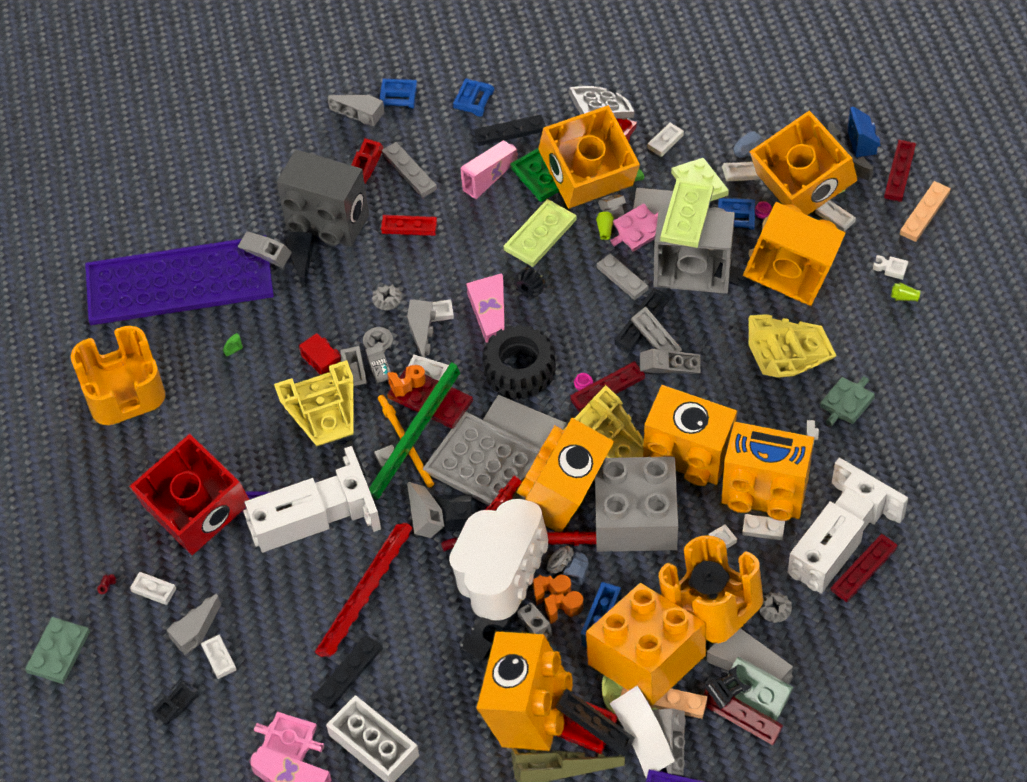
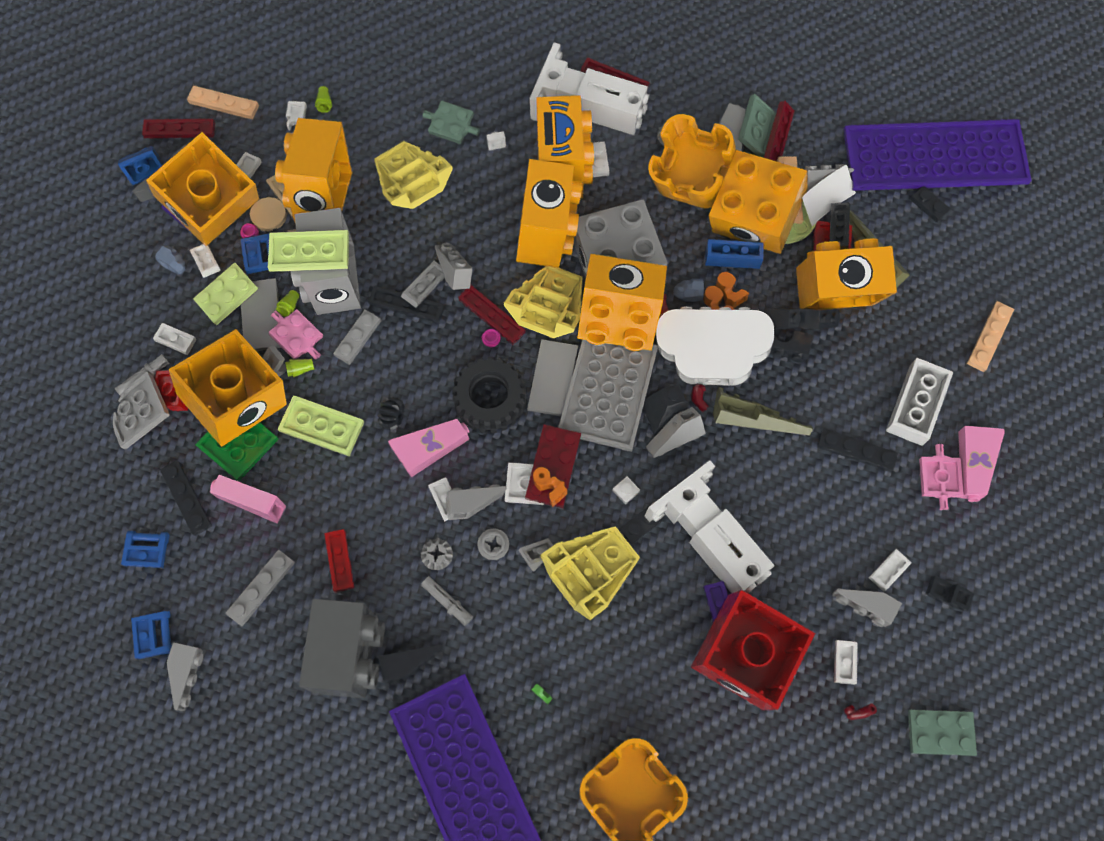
camera: 110 degrees left, 15 degrees up
(265, 248) = (414, 701): light grey slope -> none
(319, 353) = (529, 594): red brick -> none
(336, 297) = (454, 607): none -> light grey pin
(361, 594) = (776, 461): red plate -> none
(368, 157) = (265, 638): red slope -> none
(377, 363) = (525, 531): light grey leg -> none
(390, 412) = (575, 504): light orange bar -> none
(414, 431) = (601, 461): green tile -> none
(425, 578) = (740, 412): none -> olive wedge
(505, 494) = (650, 366): red pin -> none
(534, 620) = (759, 301): light grey leg -> none
(559, 559) = (684, 296): light grey gear -> none
(639, 116) = (152, 367): none -> light grey pin
(709, 579) = (680, 171): black piece -> none
(721, 694) = (773, 145): black piece -> none
(725, 534) = (621, 184): white plate -> none

